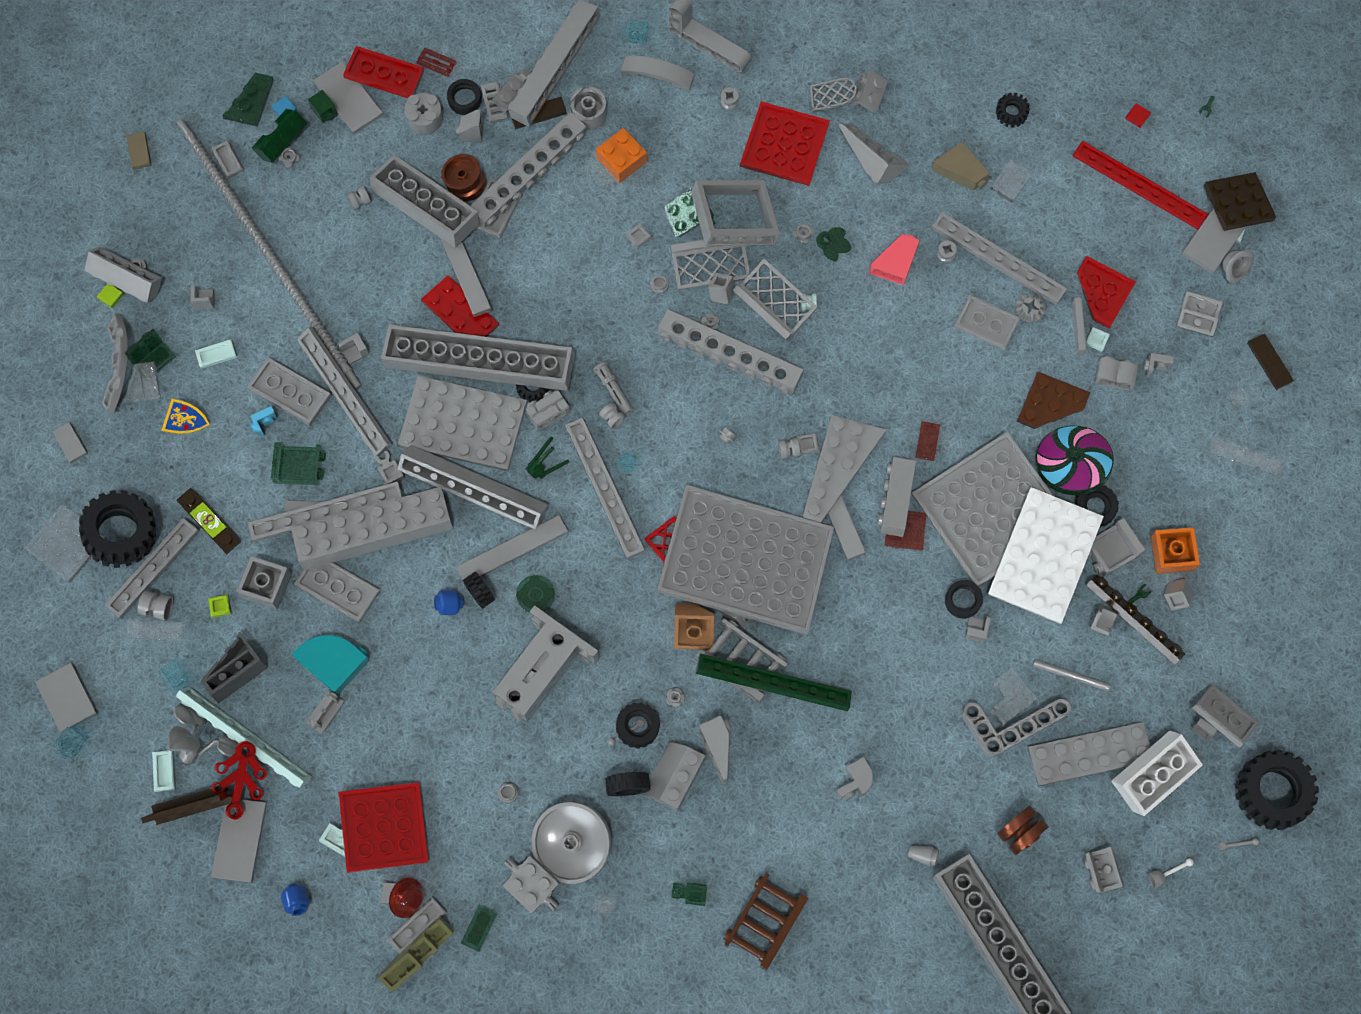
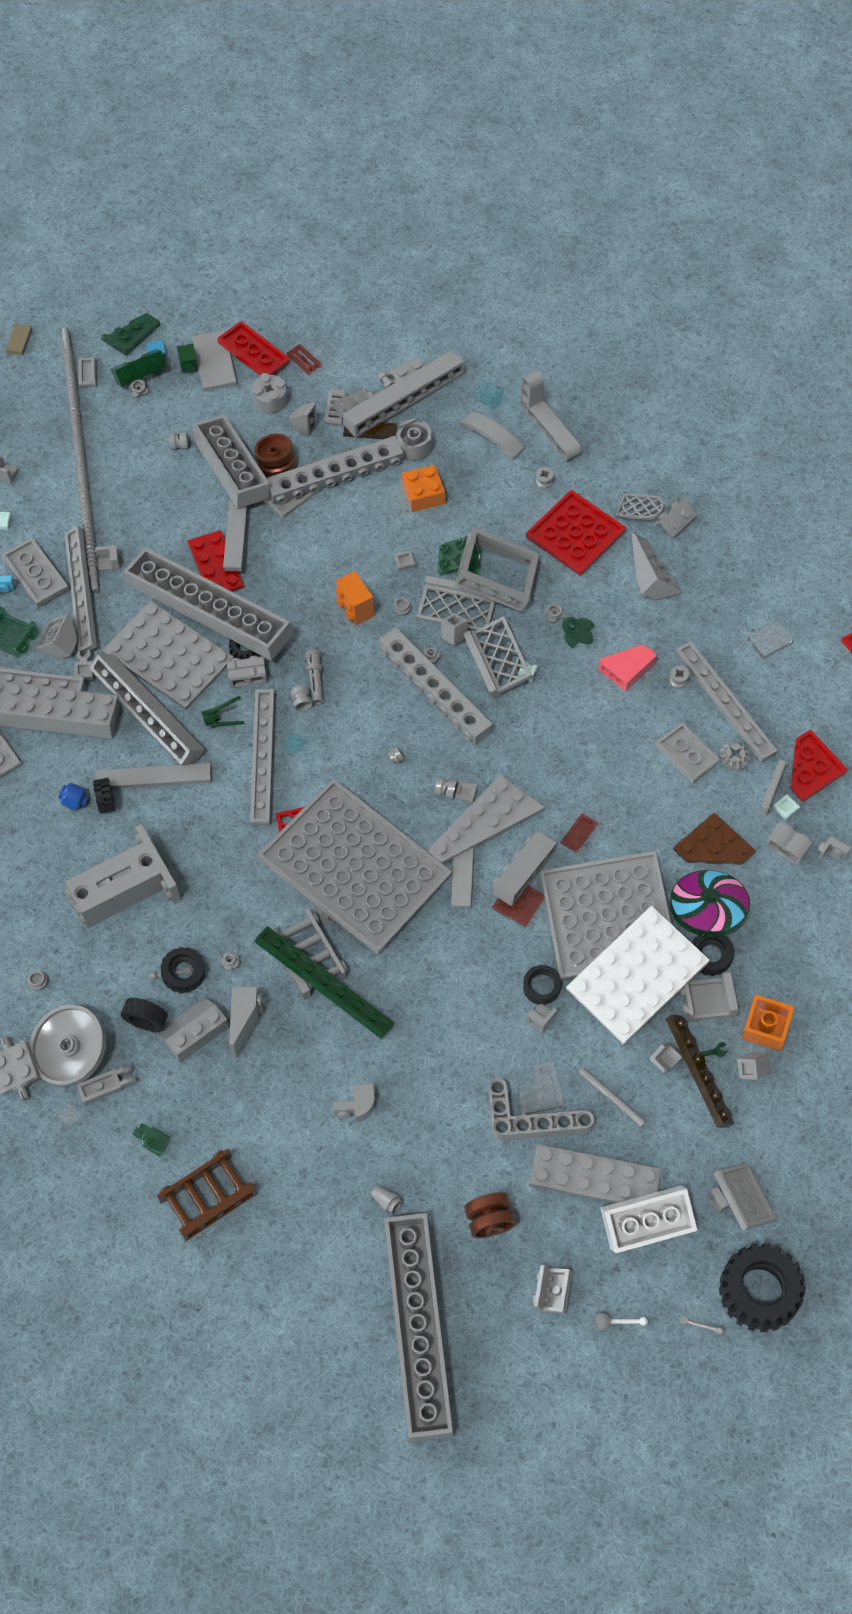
camera: 25 degrees right, 10 degrees down
(348, 449) = (58, 638): none -> light grey slope
(464, 84) = (312, 383): black tyre -> none
(535, 591) = (156, 820): clear green tile -> none
(540, 40) = (400, 372): none -> light grey plate
(614, 295) = (354, 598): none -> orange brick
(621, 863) = (105, 1084): none -> light grey hinge
(693, 627) = (276, 905): medium nougat slope -> none
(962, 167) = (728, 610): dark tan slope -> none
(1010, 119) = (803, 571): black tyre -> none

